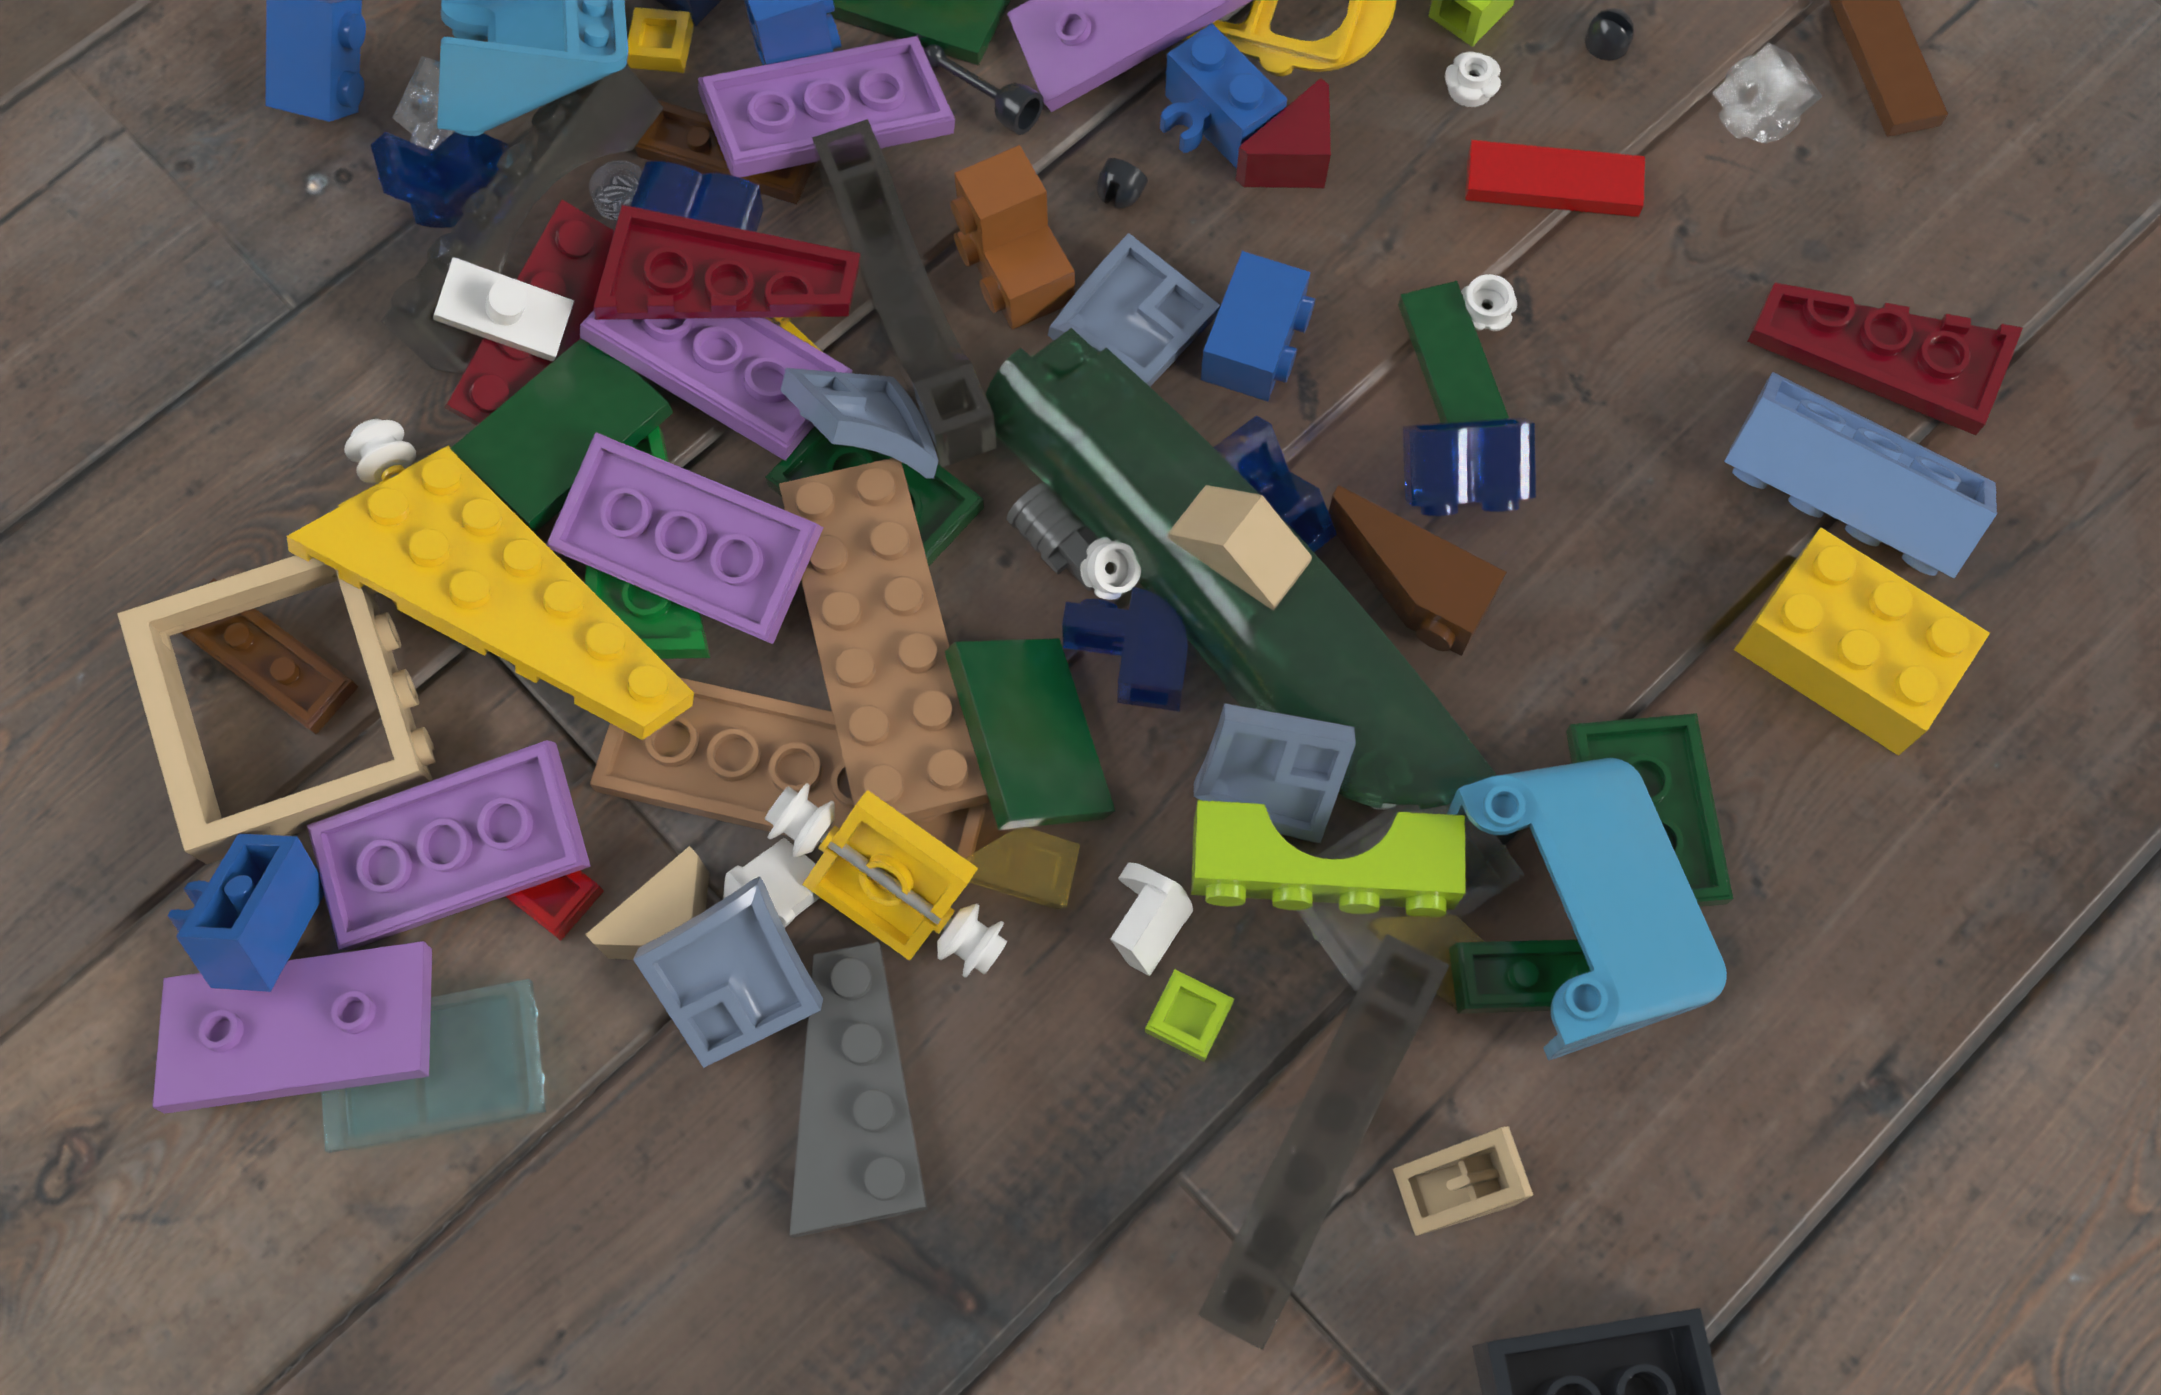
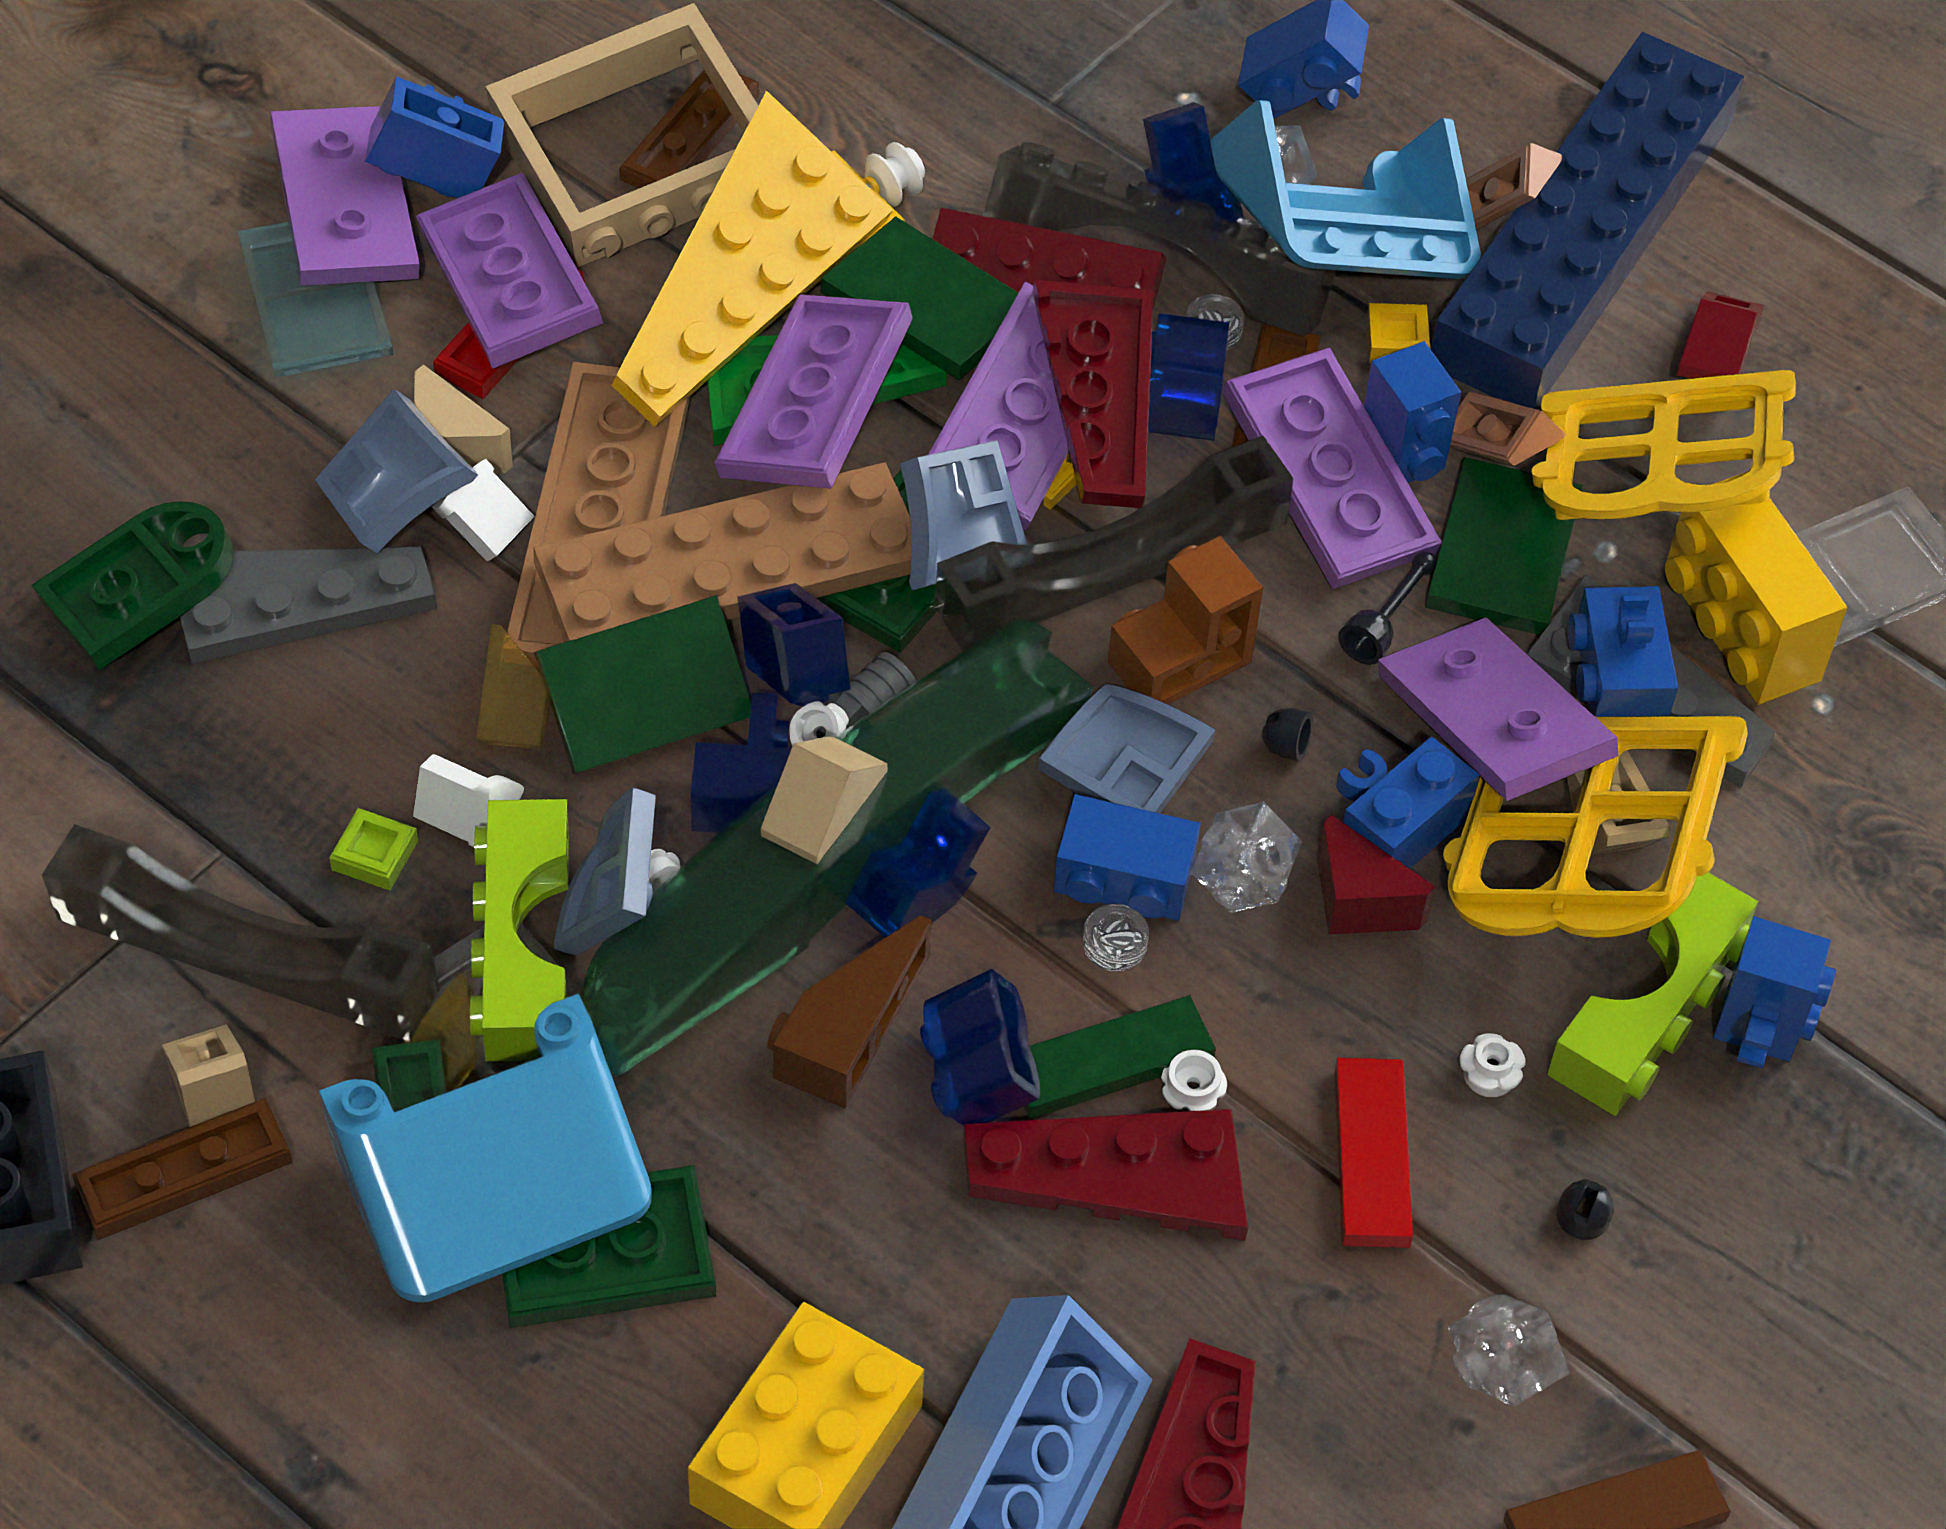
camera: 80 degrees right, 15 degrees down
(503, 309) = (1032, 222): white tile -> none
(832, 1269) = (137, 578): none -> dark green tile
(888, 876) = (480, 582): yellow plate -> none
(1008, 579) = (794, 644): none -> clear blue brick
(1271, 223) = (1246, 857): none -> clear brick
(1327, 352) = (1115, 937): none -> clear tile
(1568, 370) = (1135, 1165): none -> dark red wing
(1568, 1219) = (181, 1168): none -> reddish brown tile

